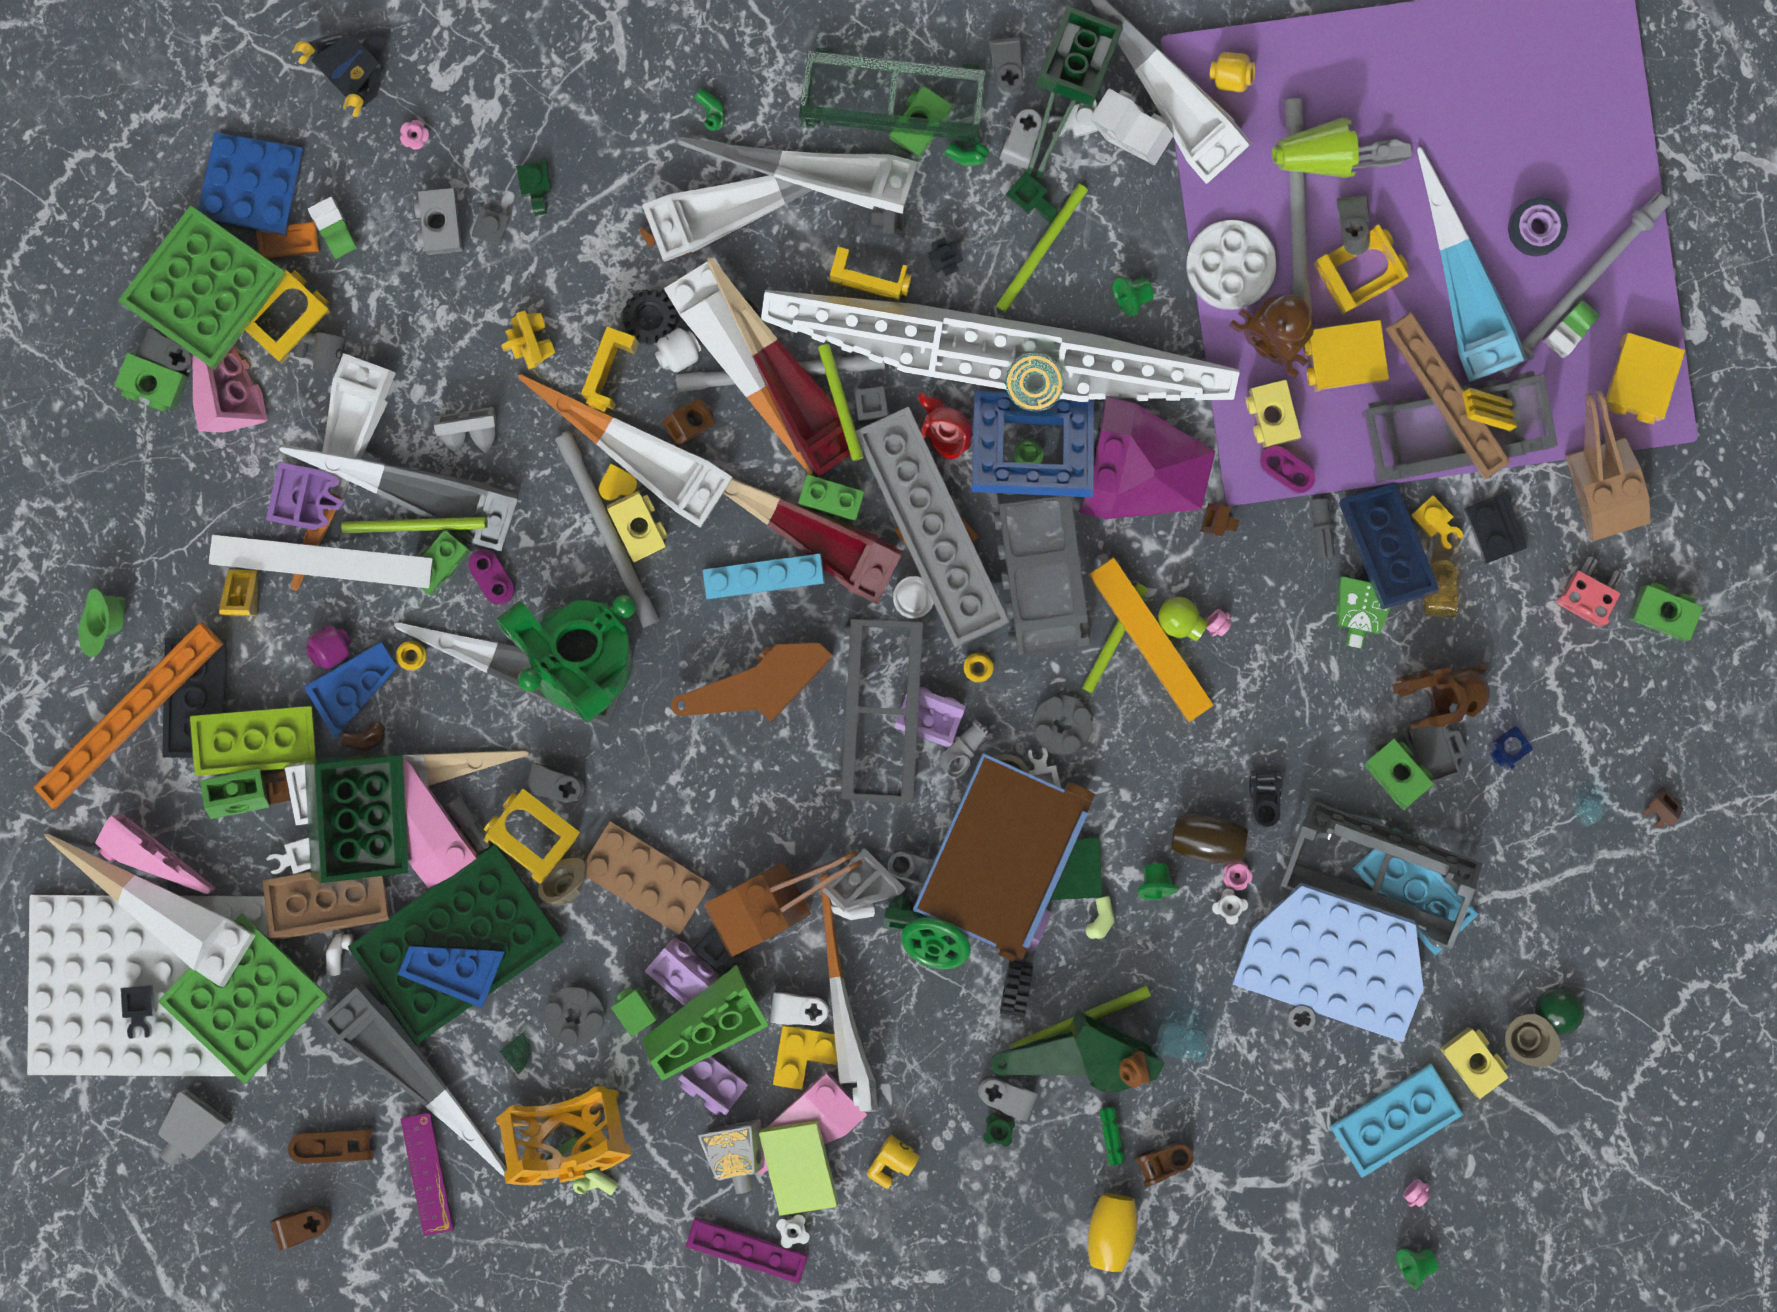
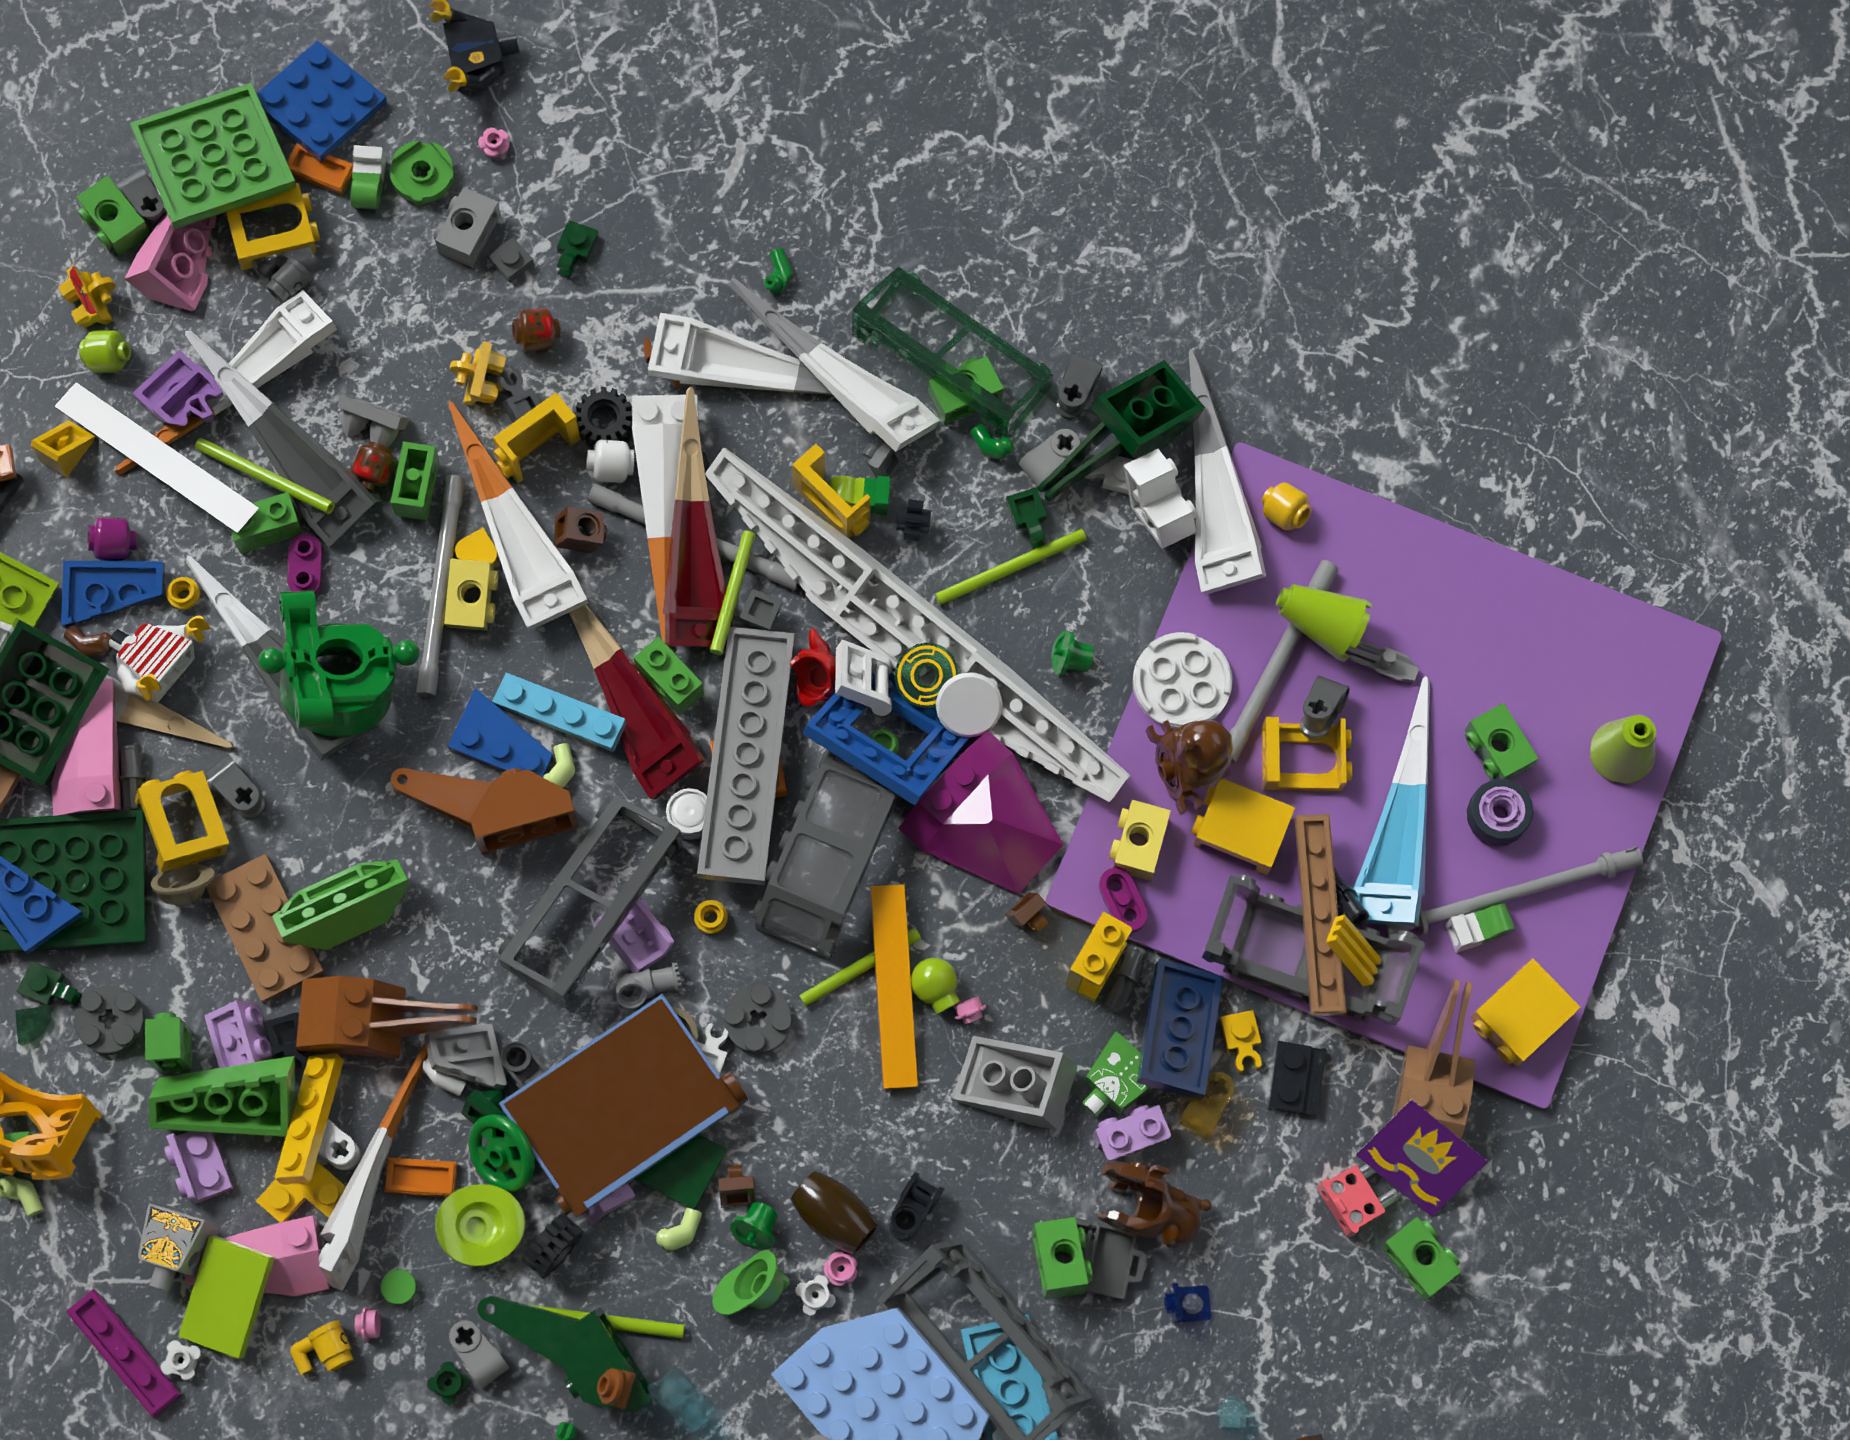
camera: 25 degrees right, 15 degrees down
(180, 457) = (93, 293): none -> yellow hips
(220, 498) = (104, 351): none -> lime head
(379, 211) = (423, 155): none -> bright green plate
(426, 721) = (155, 656): none -> torso
(494, 465) = (374, 465): none -> reddish brown head
(508, 1019) = (46, 984): none -> dark green plate
(535, 459) = (415, 480): none -> bright green brick
(549, 276) = (535, 329): none -> reddish brown head
(580, 345) = (518, 401): none -> black plate
(694, 826) = (342, 905): none -> bright green wedge
(731, 627) = (496, 739): none -> blue wing
(776, 1003) = (309, 1119): none -> yellow plate
(795, 620) = (564, 769): none -> yellowish green arm
(883, 993) = (420, 1177): none -> orange tile
(890, 258) = (854, 489): none -> leg
(913, 1124) = (368, 1324): none -> bright pink plate
(918, 1083) = (398, 1287): none -> bright green tile
(951, 1004) = (479, 1225): none -> lime hat
(981, 418) = (854, 676): none -> white plate
(1081, 386) = (969, 704): none -> white piece
(1125, 863) = (736, 1189): none -> reddish brown tile
(1178, 929) = (751, 1284): none -> bright green piece
(1285, 658) = (1016, 1081): none -> light grey slope
(1296, 527) = (1098, 957): none -> yellow panel
(1398, 647) = (1139, 1130): none -> lavender bracket
(1470, 376) = (1352, 908): none -> black pin
(1526, 171) = (1501, 726): none -> bright green brick
(1605, 117) = (1624, 749): none -> lime cone
(1626, 538) = (1421, 1158): none -> dark purple sticker

